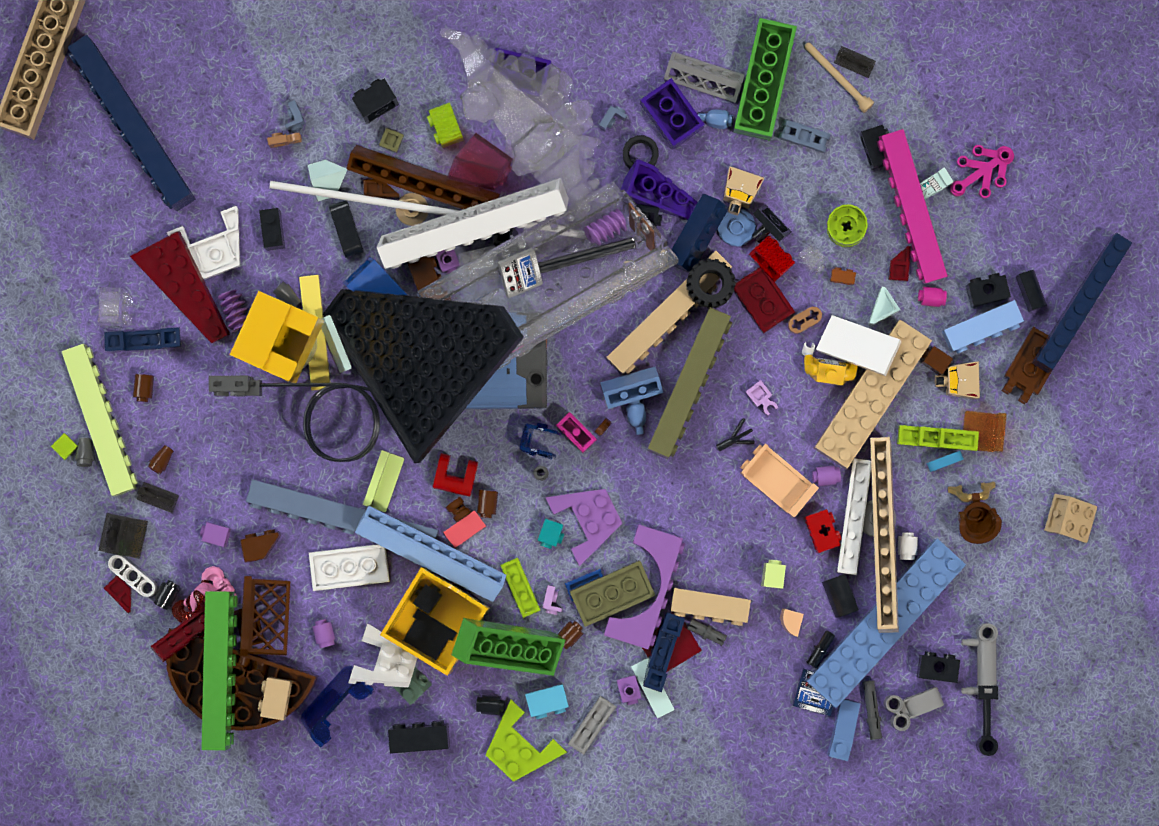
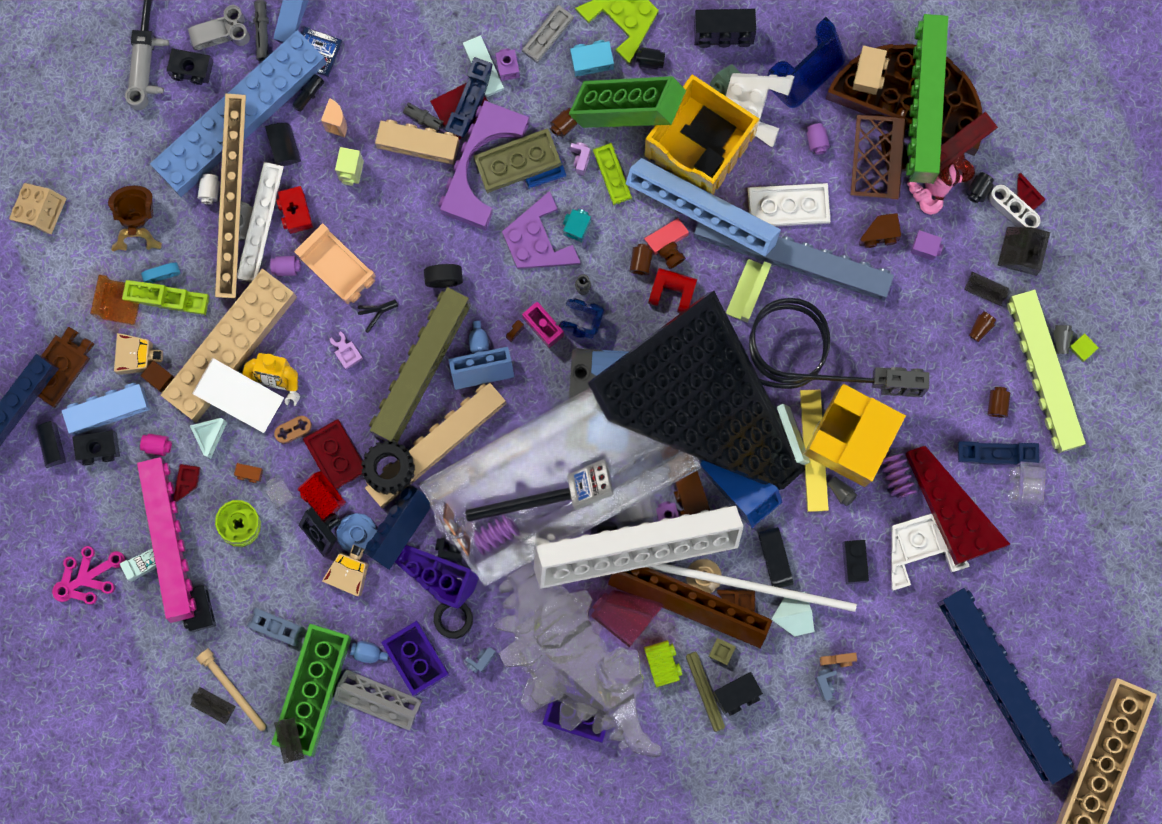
camera: 175 degrees left, 5 degrees down
(405, 103) = (705, 691): none -> olive axle
(674, 473) = (443, 275): none -> black tyre
(780, 29) = (289, 740): none -> clear smoke hinge

